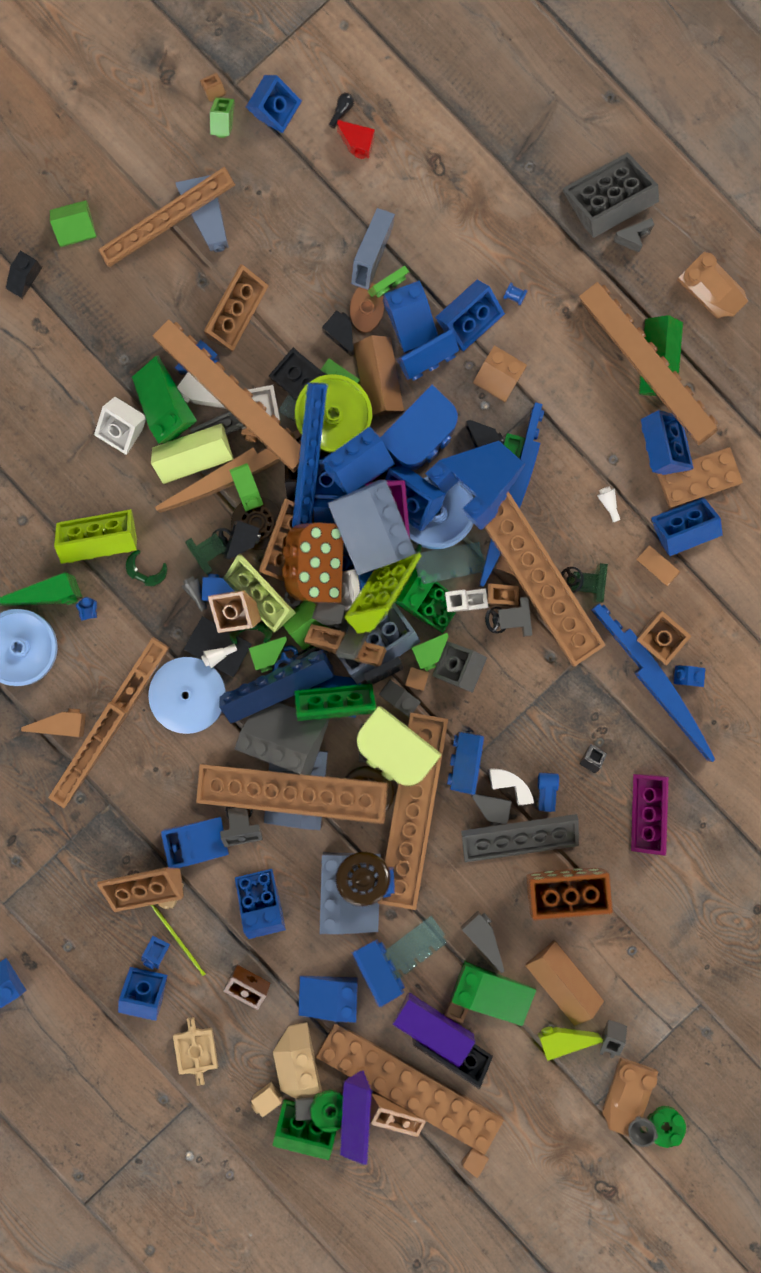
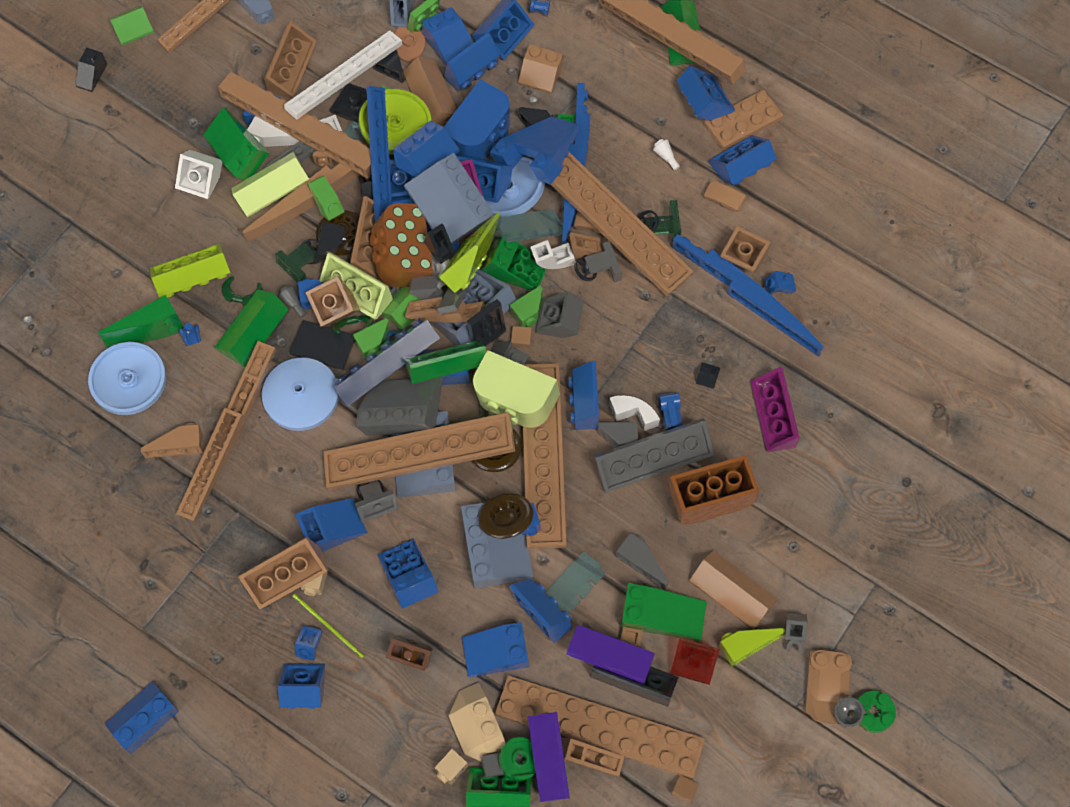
camera: 10 degrees left, 20 degrees down
(149, 614) = (253, 324): none -> green slope
(195, 1051) = (367, 733): tan plate -> none
(214, 656) = (320, 350): white cone -> none
(288, 347) = (342, 75): none -> white plate
(352, 576) = (439, 243): none -> black slope
(511, 1047) = (694, 661): none -> clear red slope

